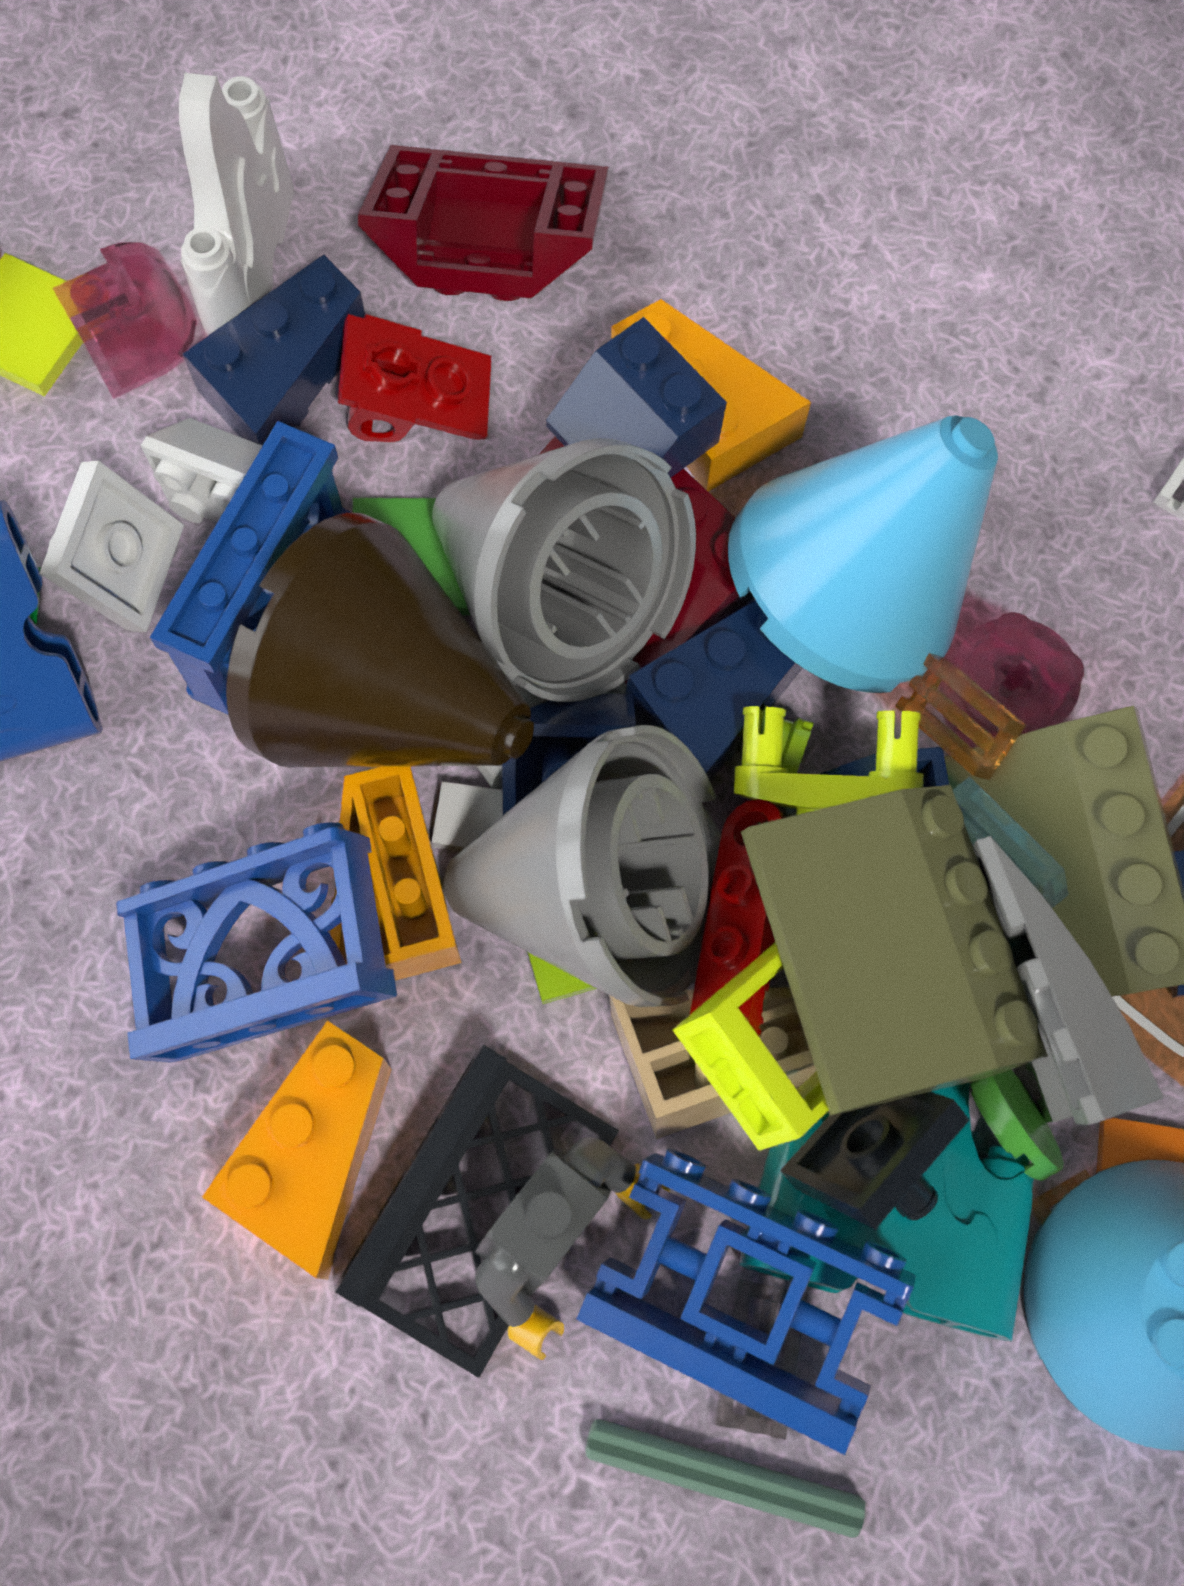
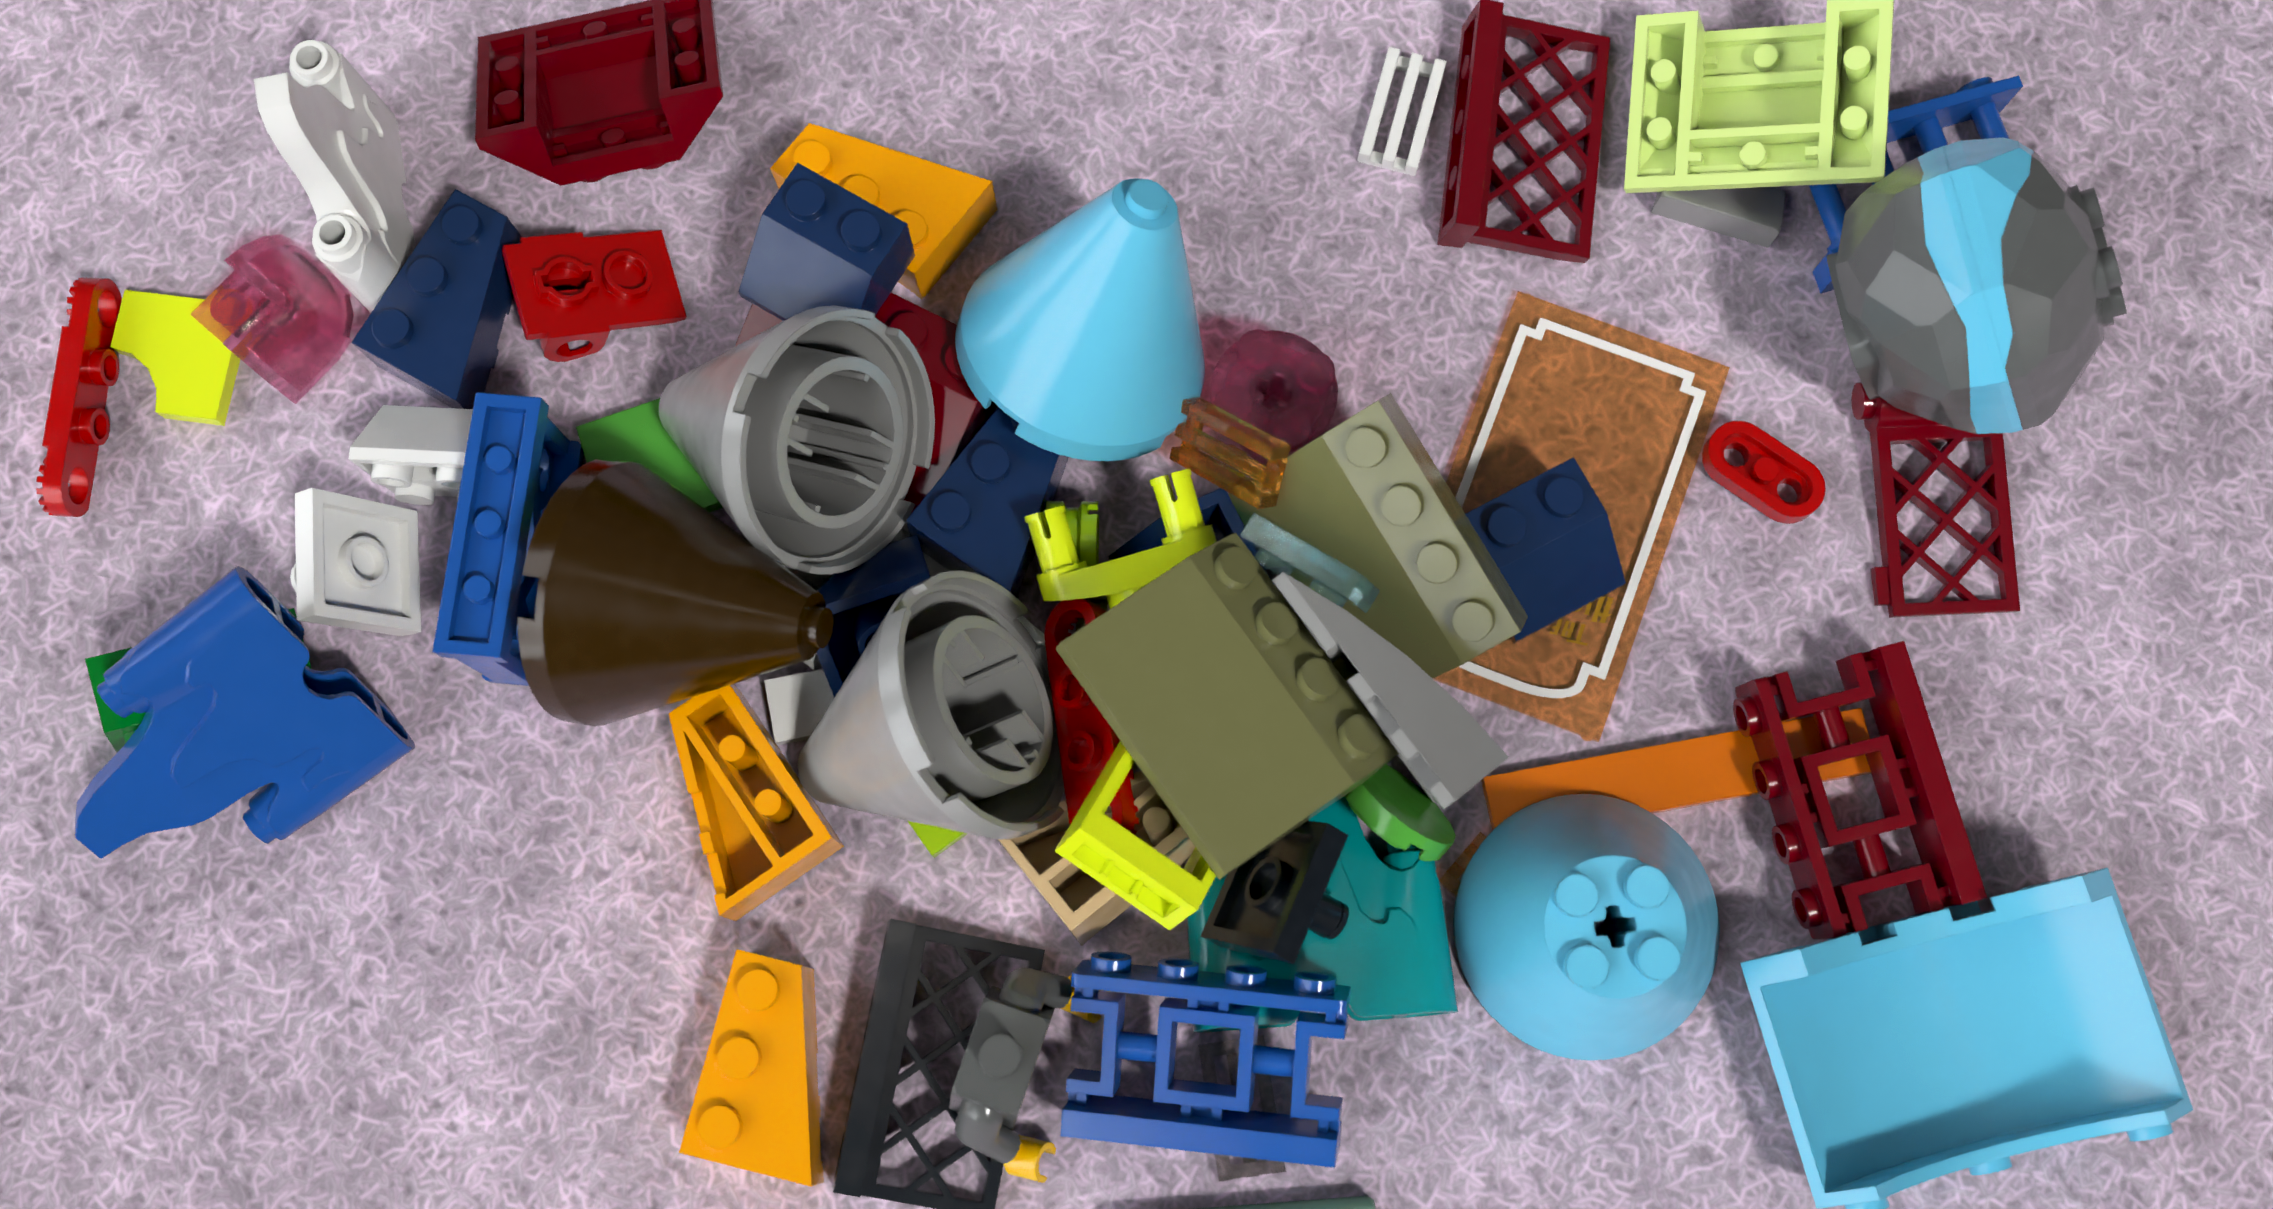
camera: 15 degrees left, 5 degrees up
(326, 984) = (722, 917): fence -> none

